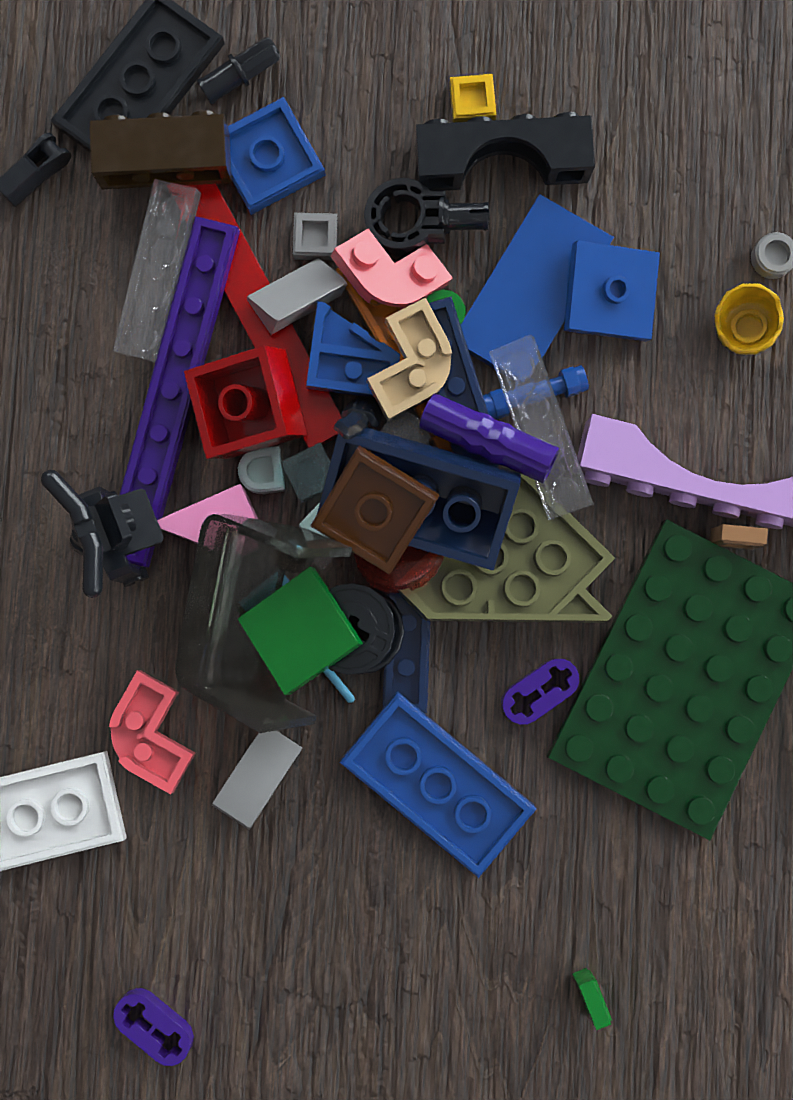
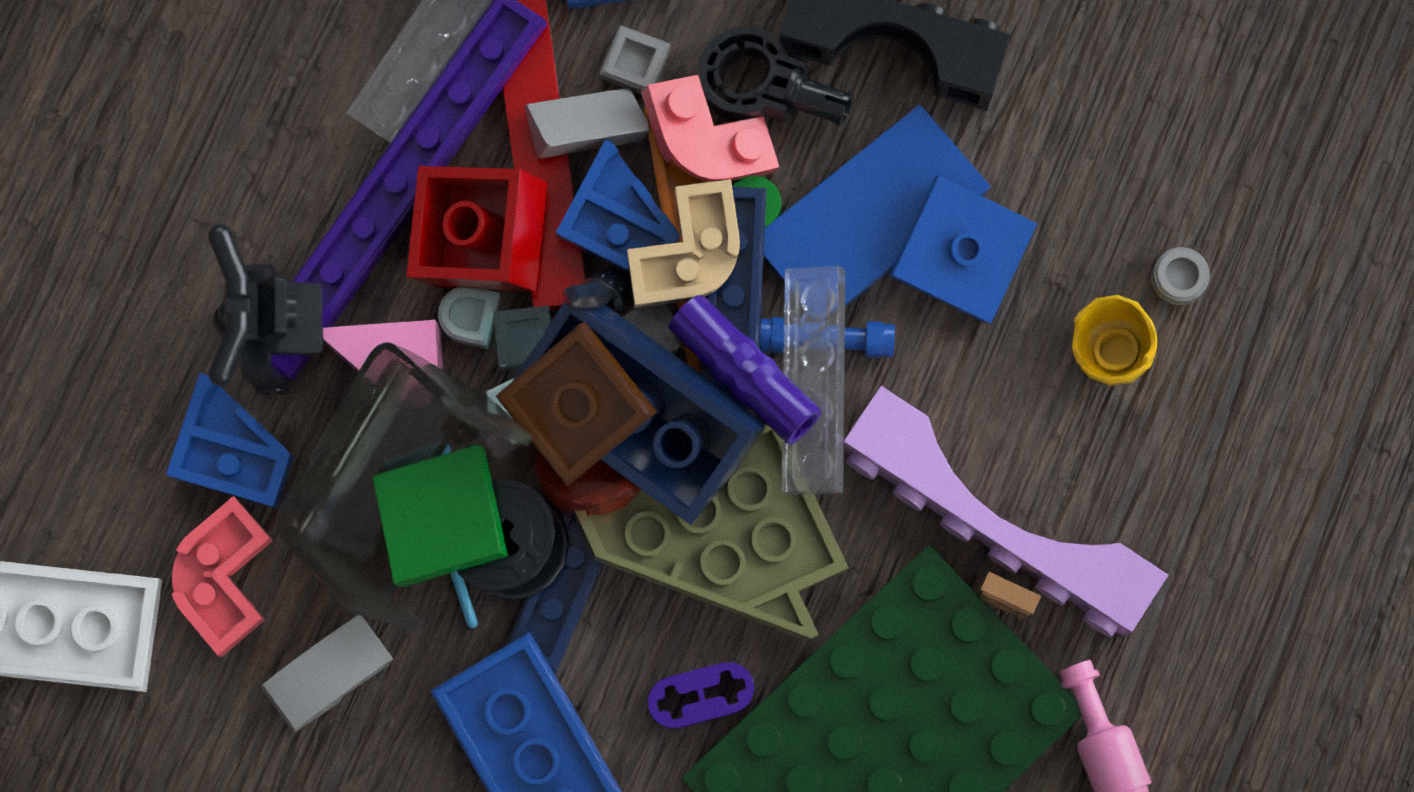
camera: 25 degrees right, 5 degrees down
(120, 636) = (228, 449): none -> blue wing

